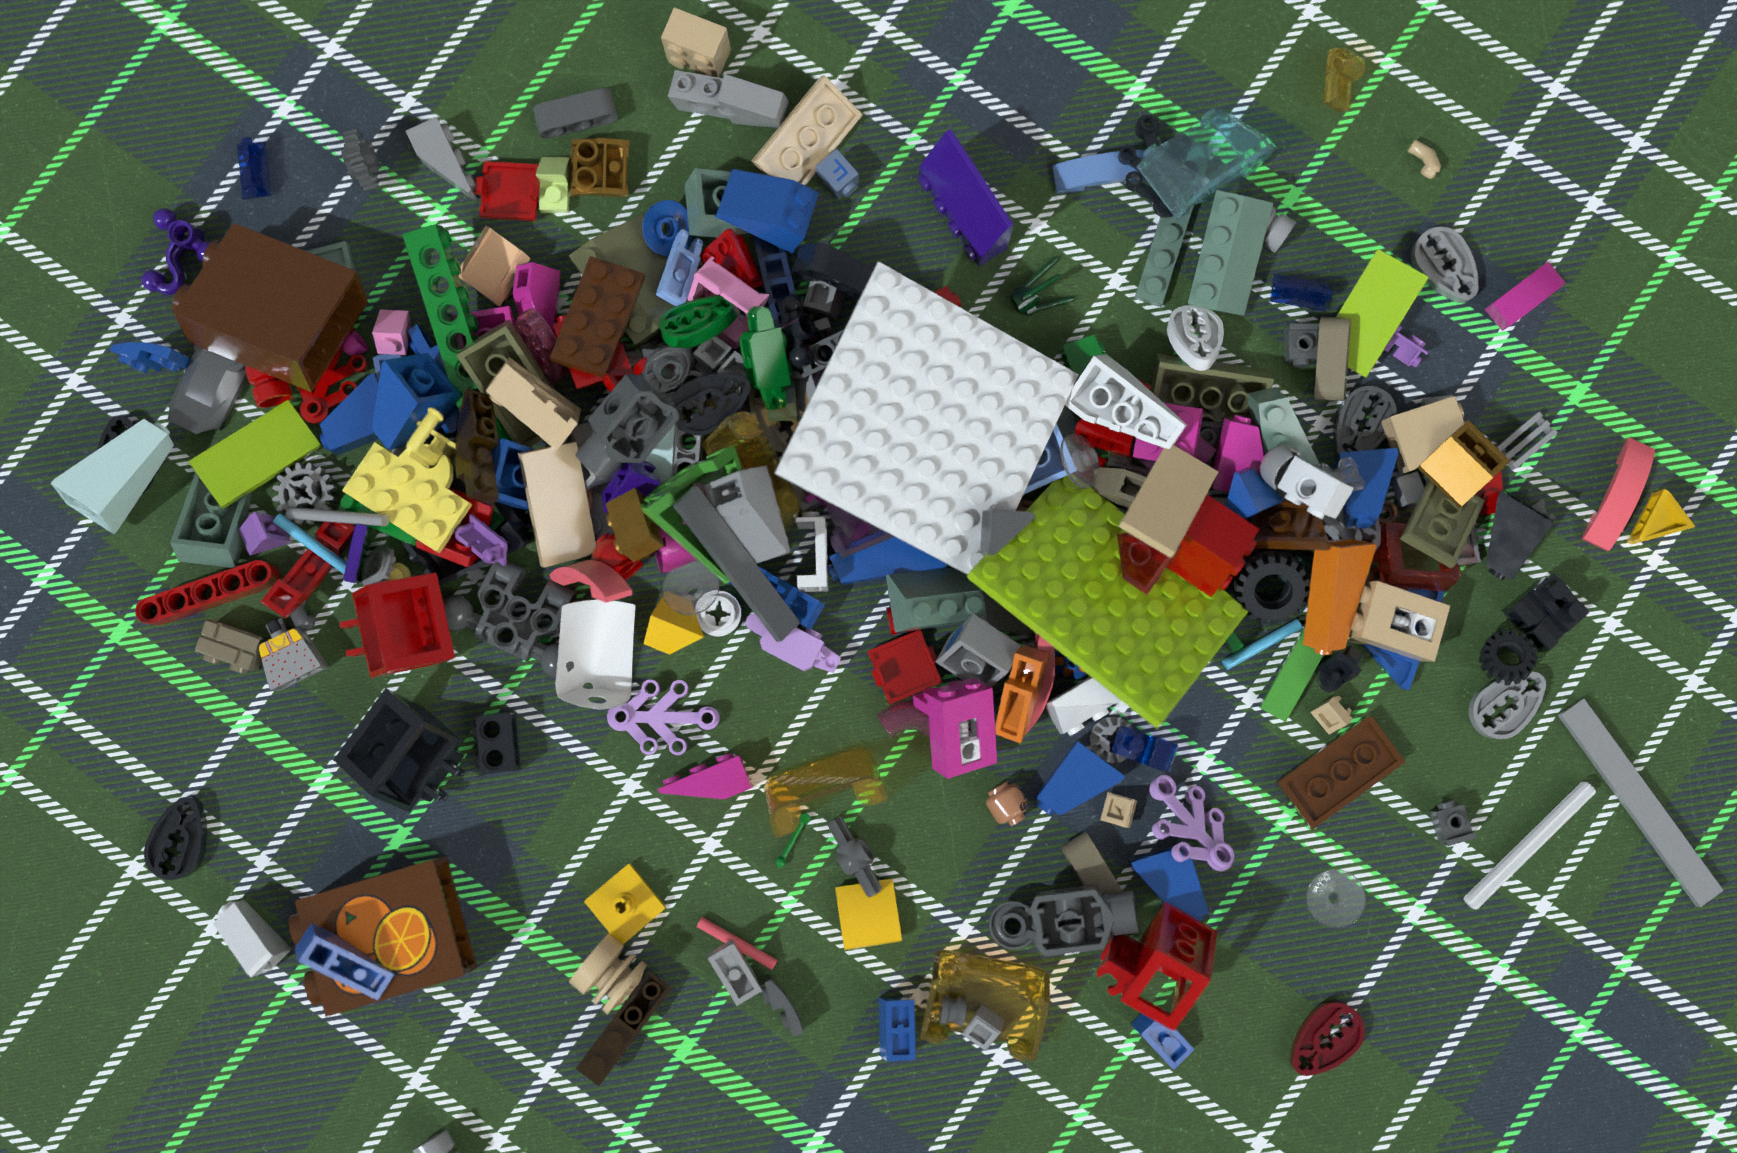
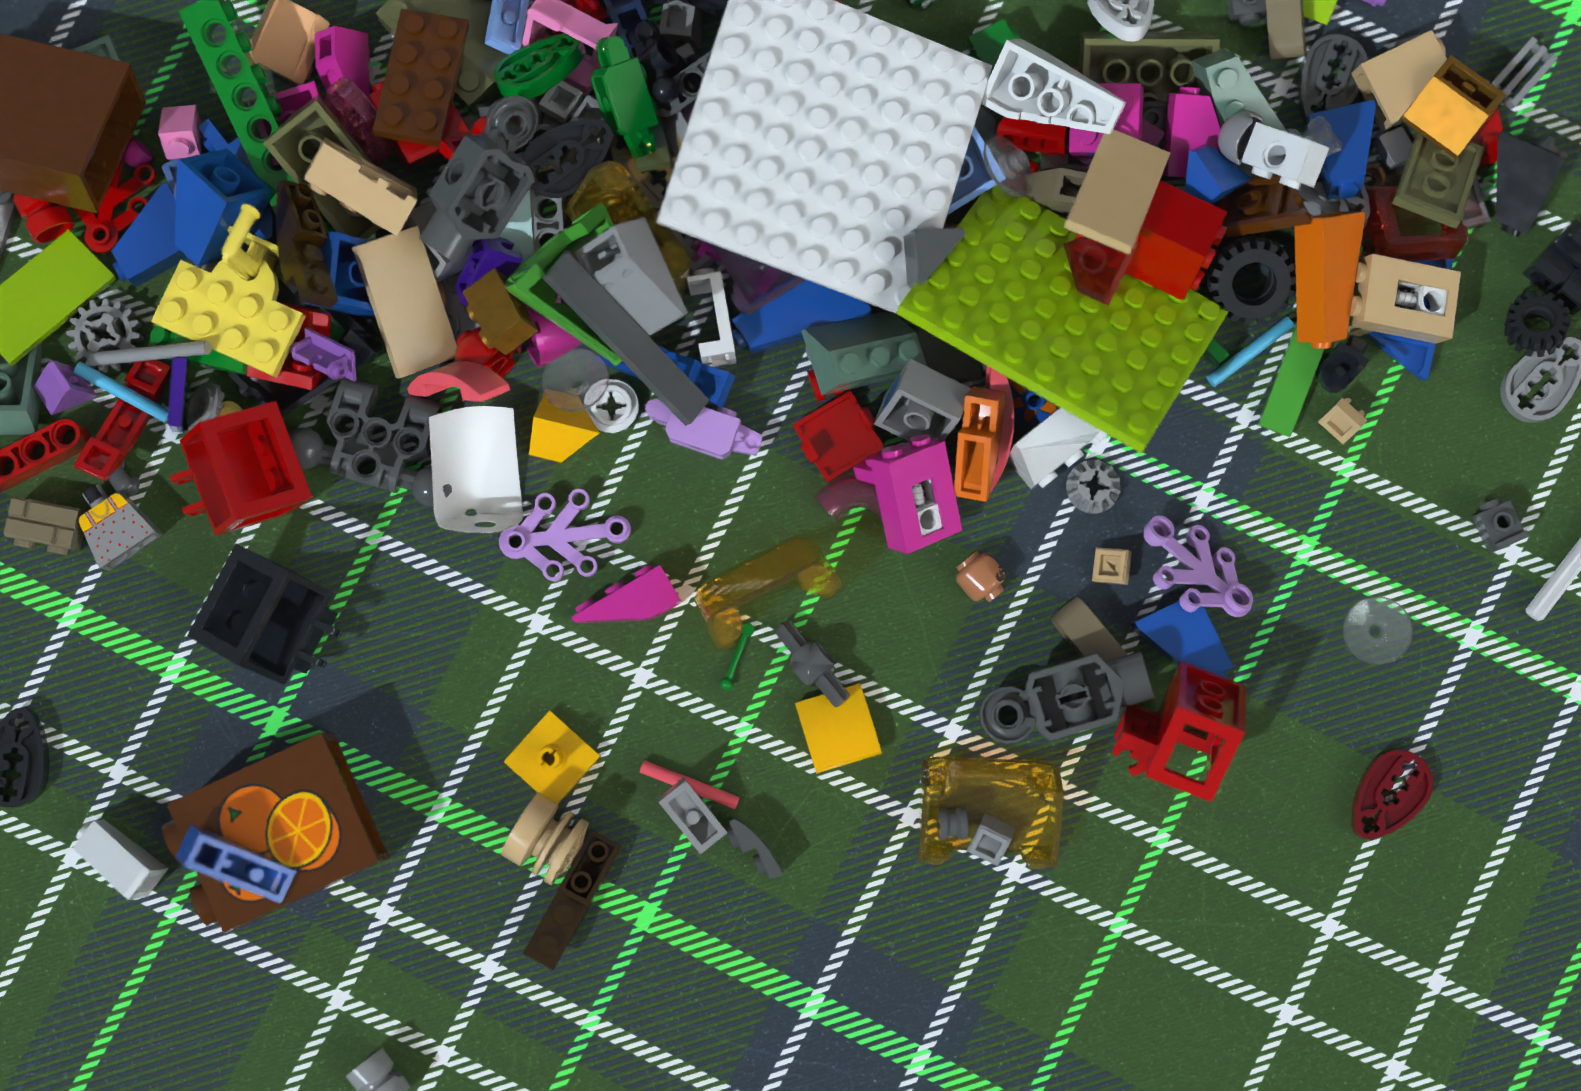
camera: 10 degrees left, 0 degrees up
(505, 742) = (384, 590): black brick -> none
(897, 1028) = (890, 854): blue hinge -> none
(1076, 780) = (1057, 537): blue slope -> none
(1145, 749) = (1132, 491): clear blue plate -> none
(1165, 1042) = (1200, 819): plate -> none
(1340, 771) = (1362, 484): reddish brown plate -> none

